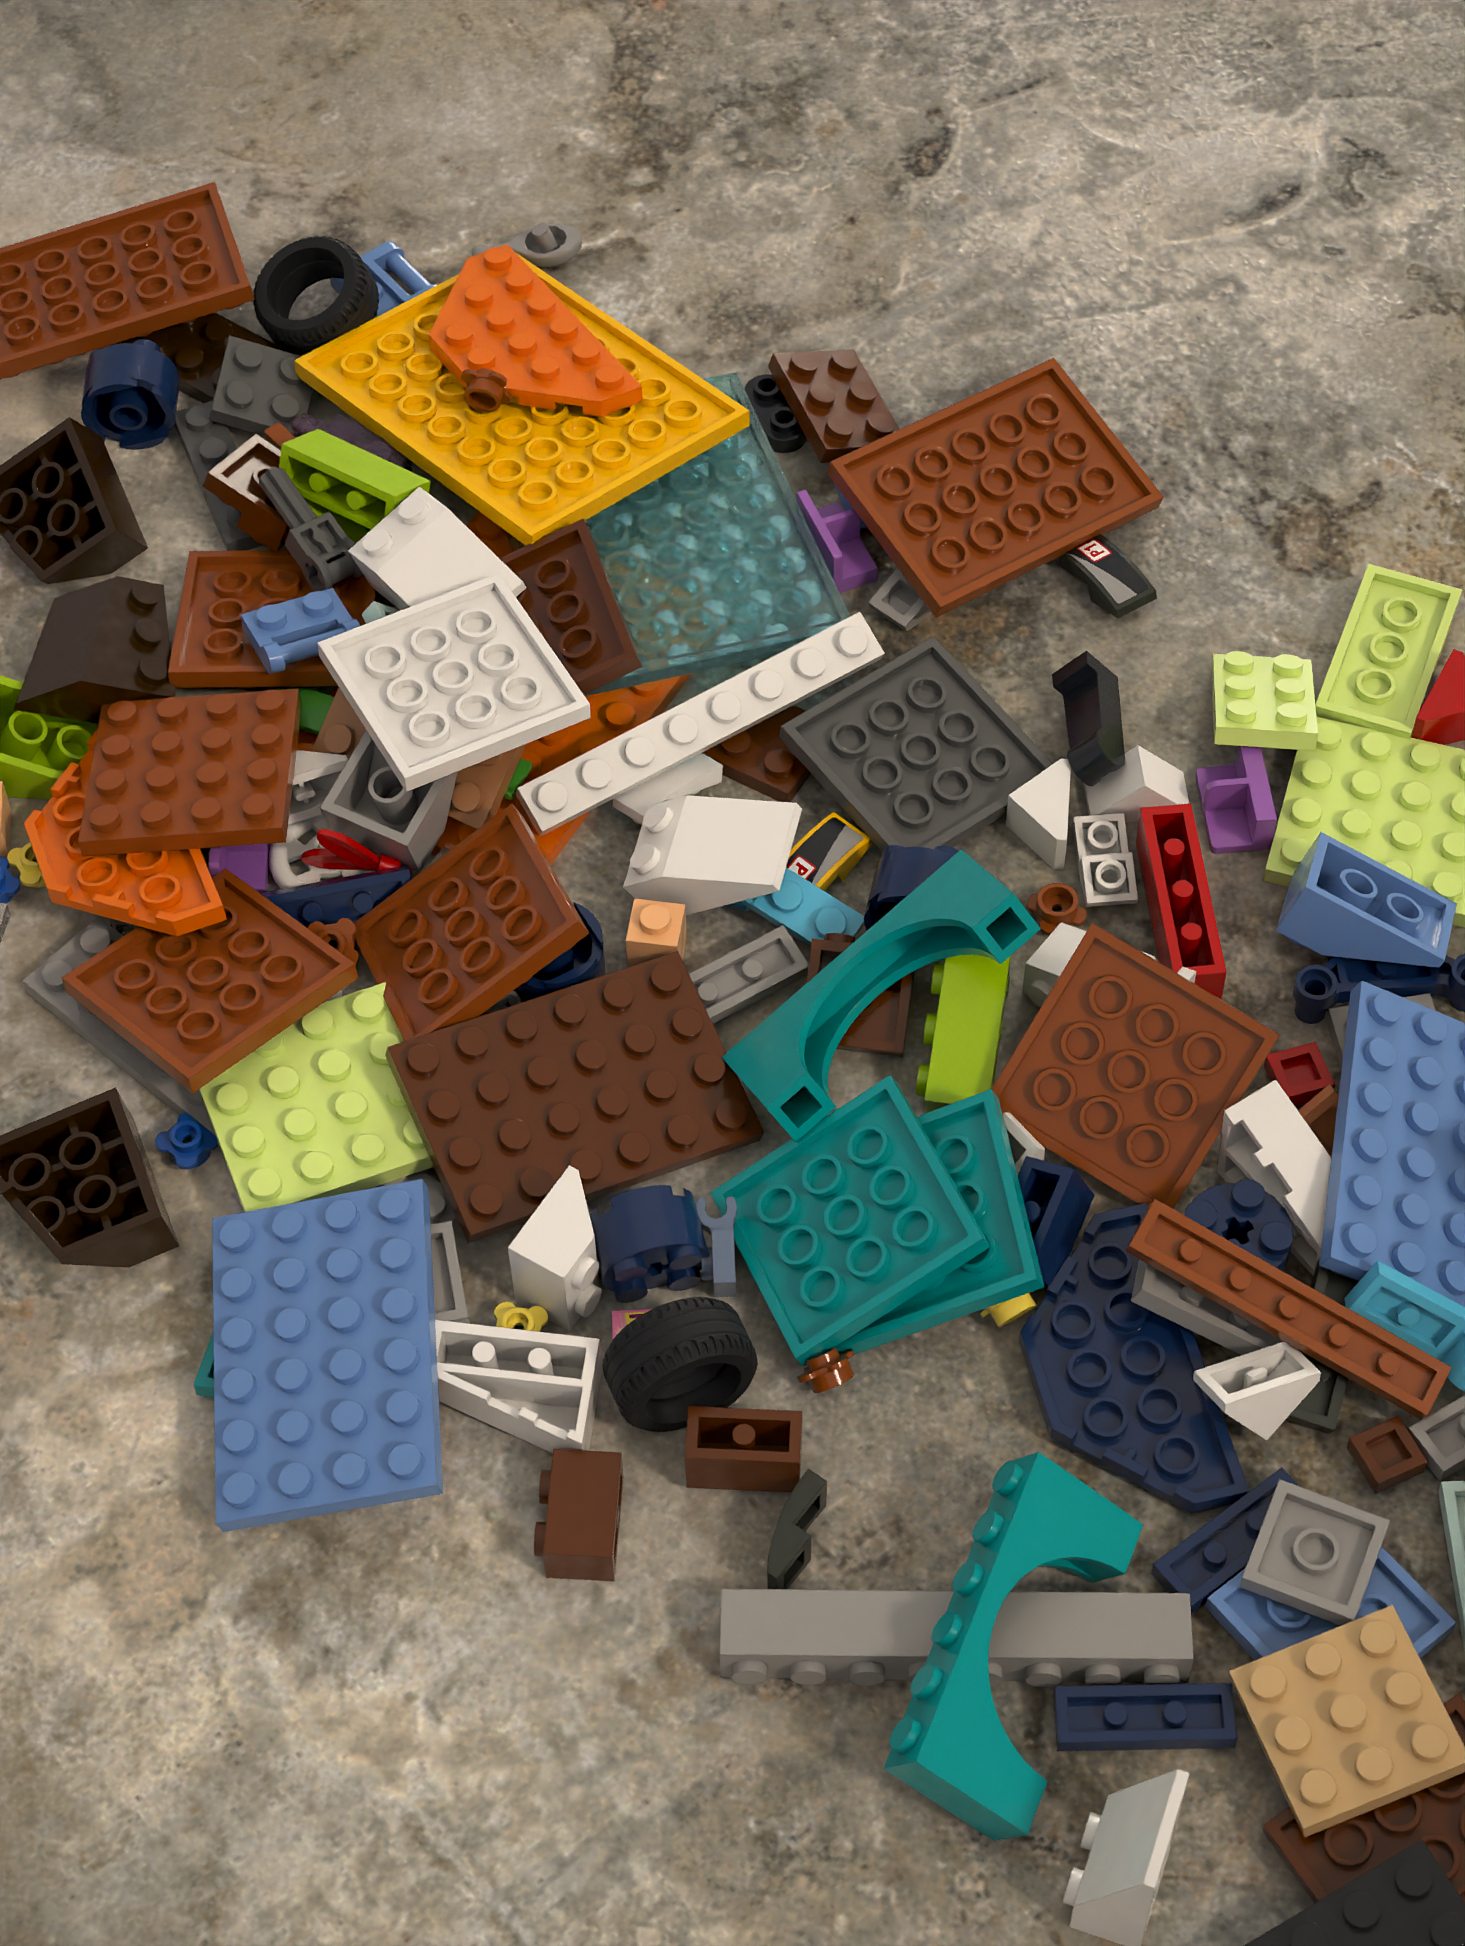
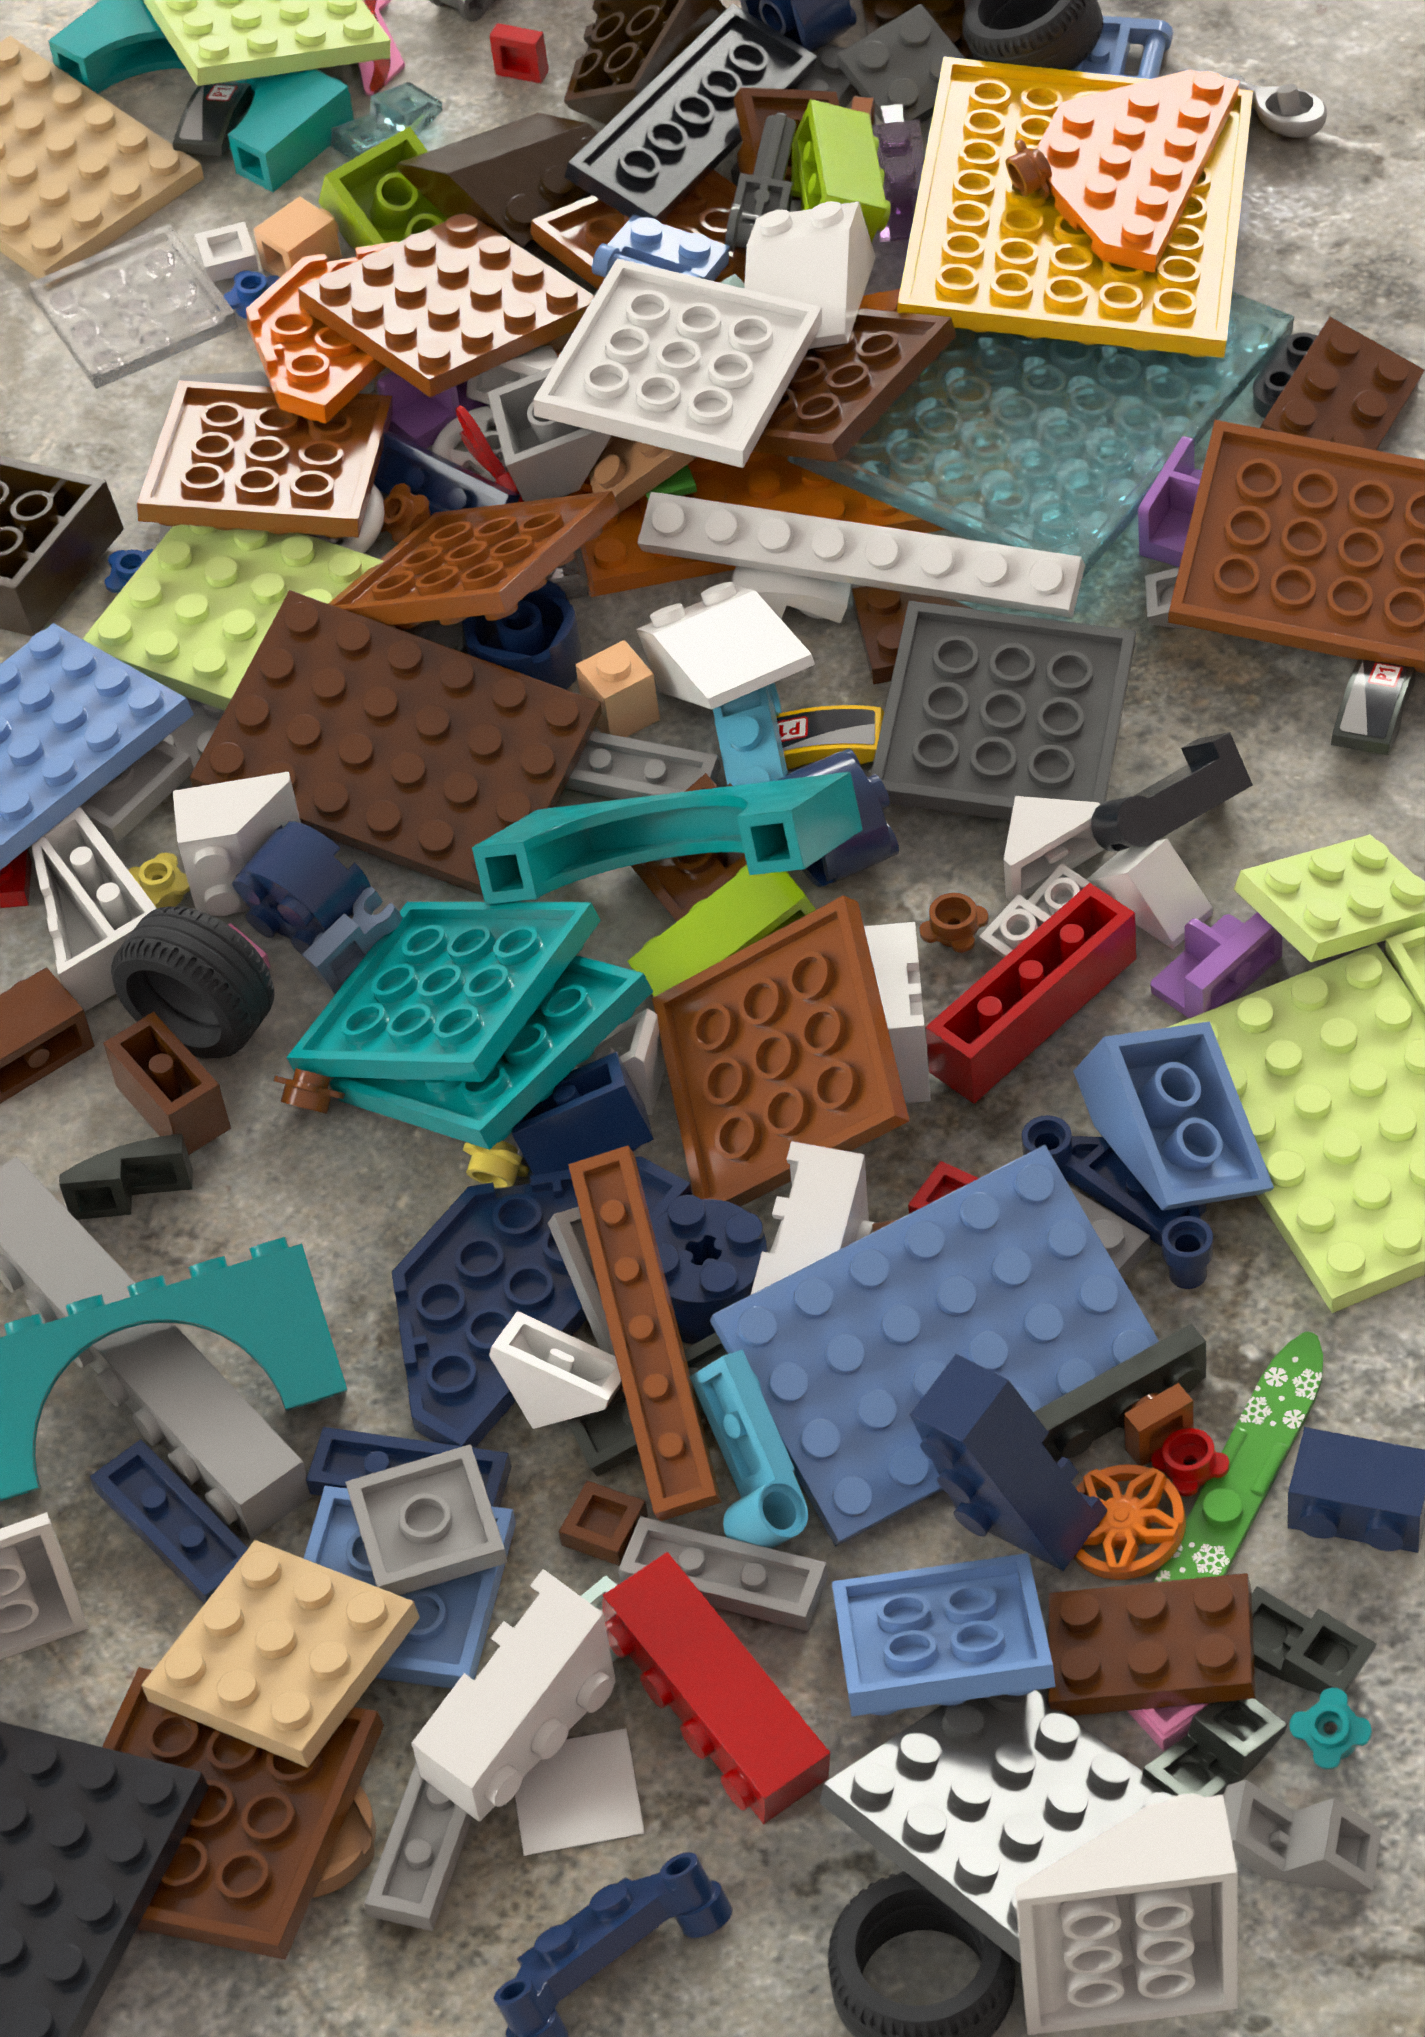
camera: 55 degrees right, 5 degrees down
(177, 523) = (686, 117): none -> plate

